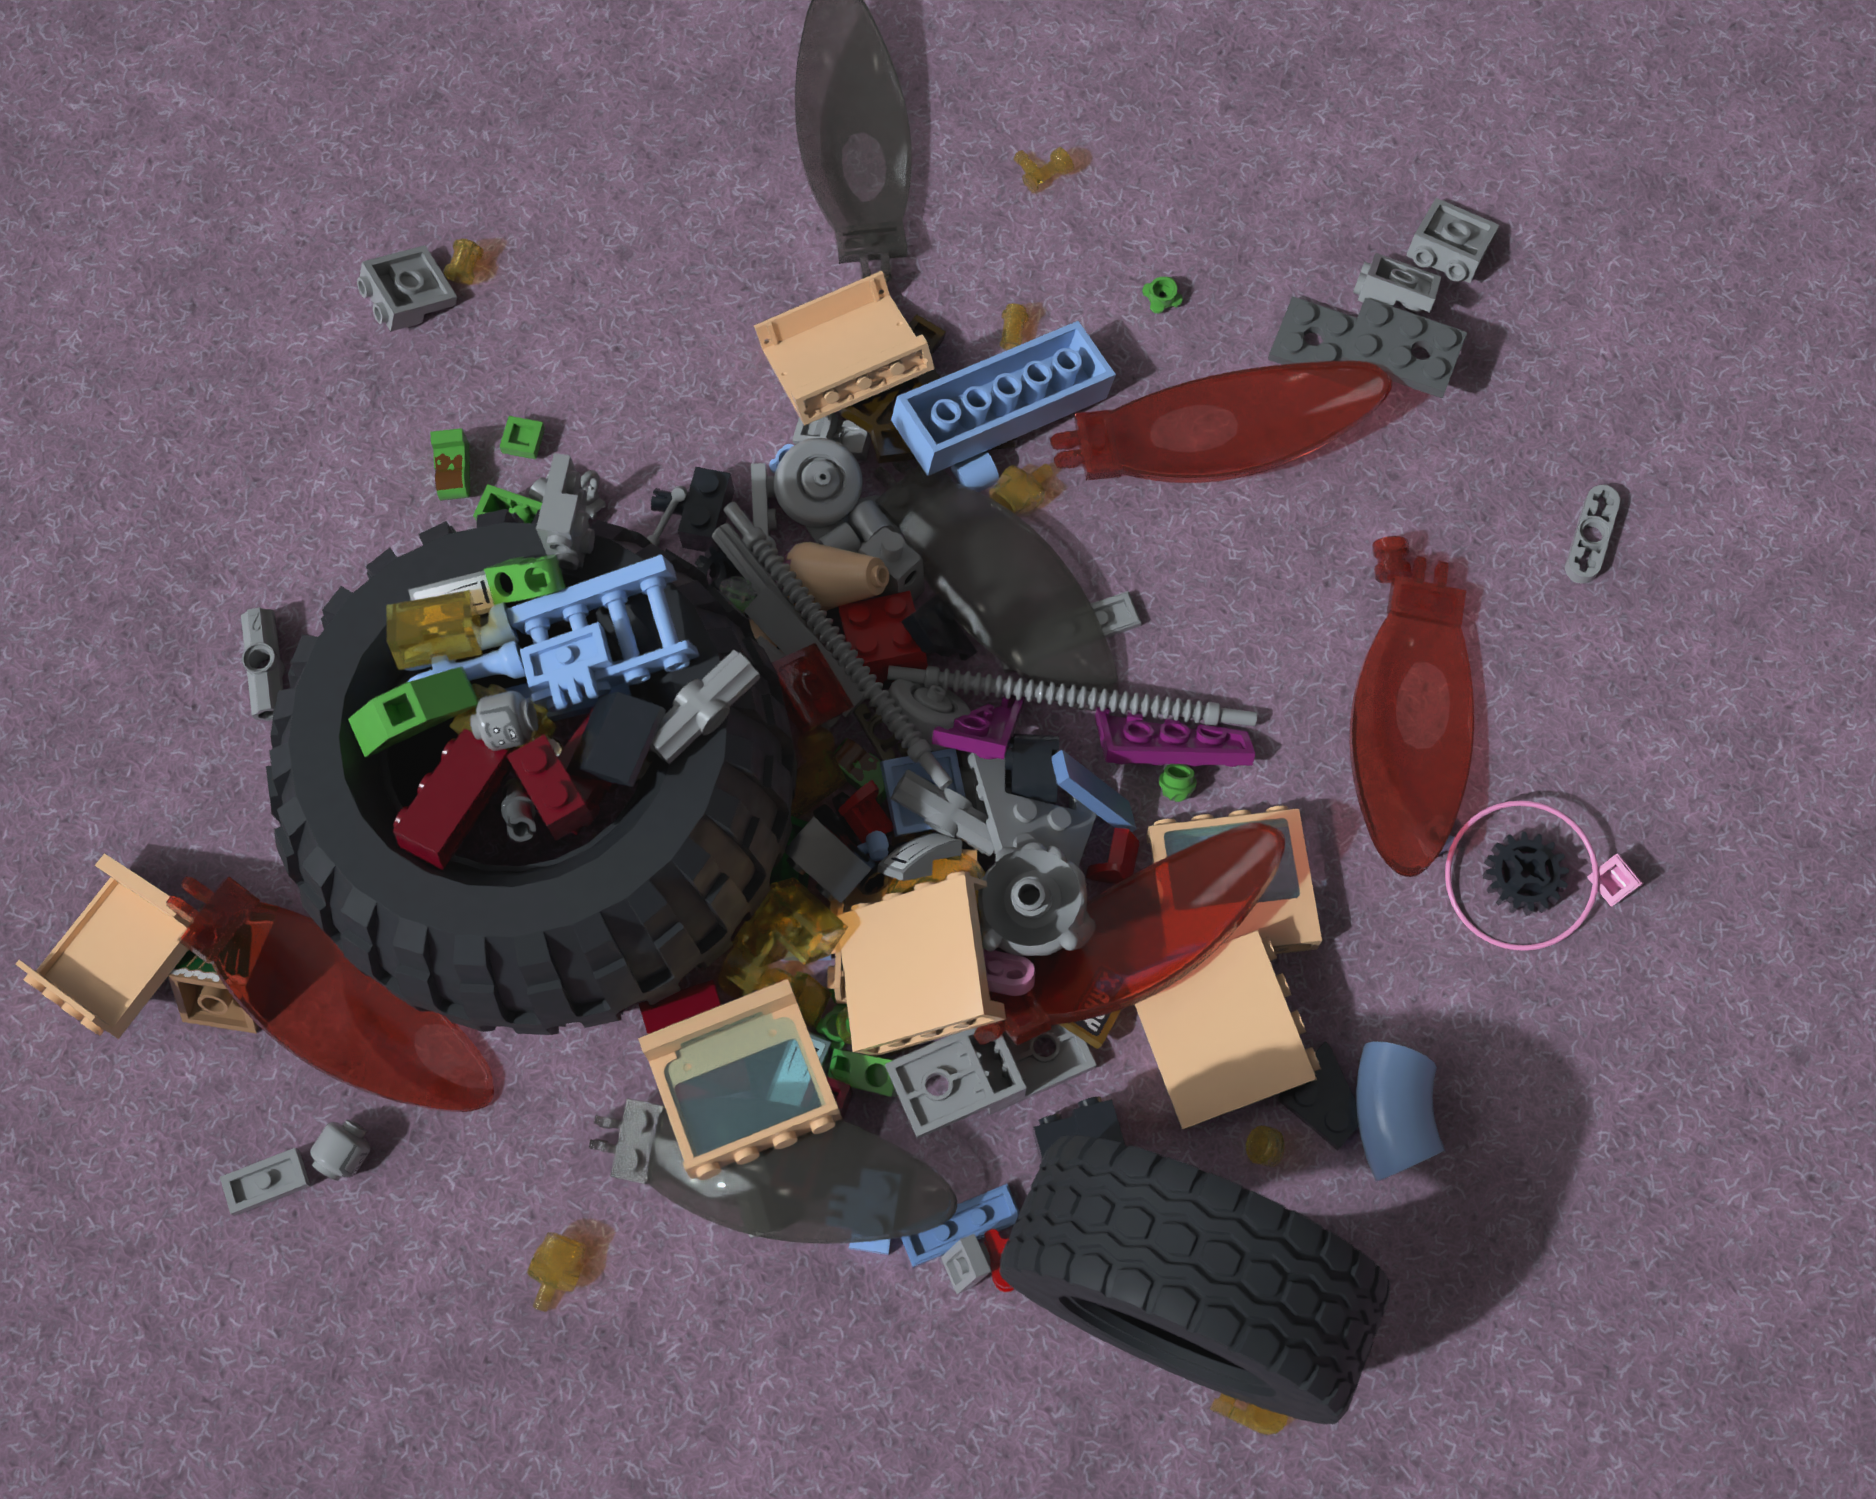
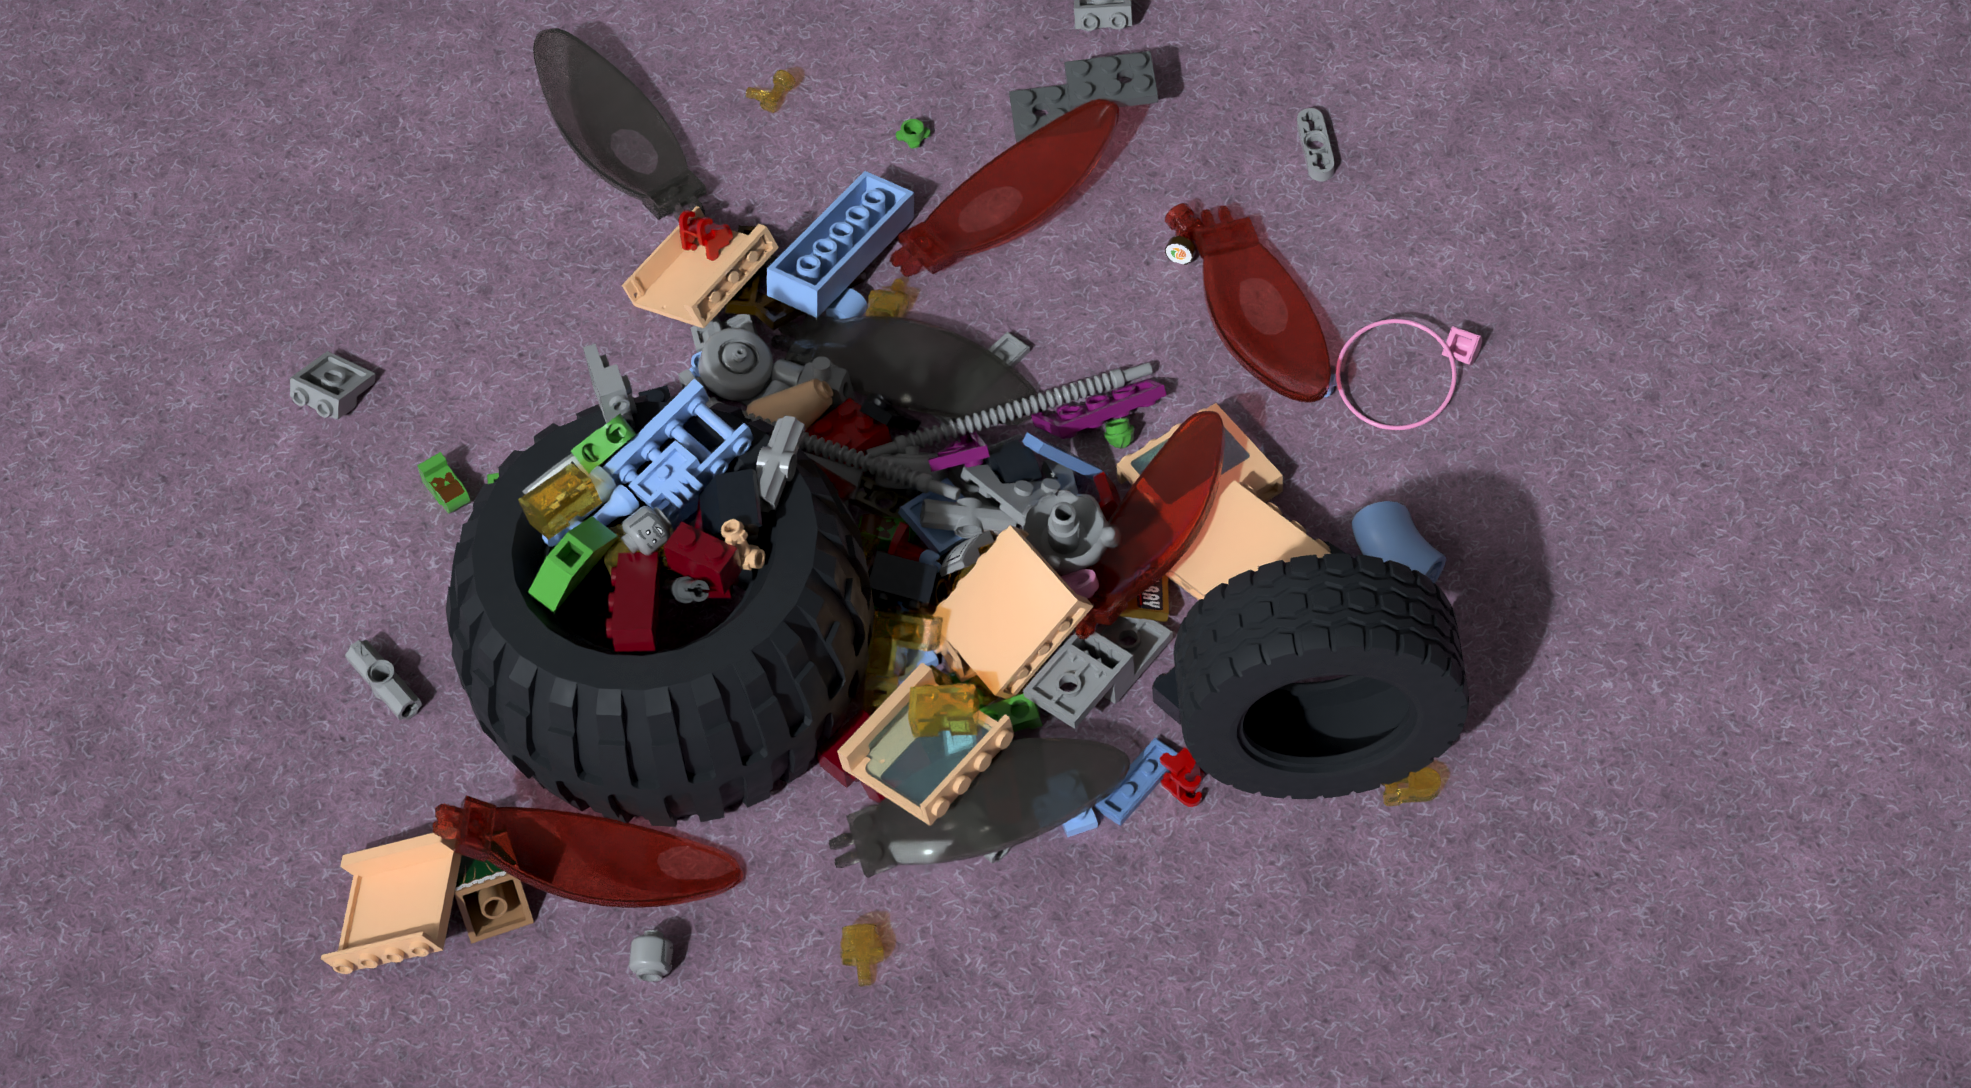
camera: 25 degrees left, 15 degrees down
(264, 1181) = (606, 1007): light grey plate -> none
(463, 261) = (365, 348): clear yellow bush -> none
(522, 437) = (487, 442): bright green plate -> none
(604, 804) = (750, 555): none -> light nougat bar
(774, 1044) = (943, 709): none -> clear yellow brick
(869, 309) = (708, 234): none -> red piece
(966, 1263) = (1157, 791): light grey plate -> none
(1014, 319) = (813, 197): clear yellow pin -> none
(1369, 590) = (1180, 250): none -> tile
(1393, 280) = (1077, 46): light grey plate -> none
(1538, 883) = (1398, 372): black gear -> none

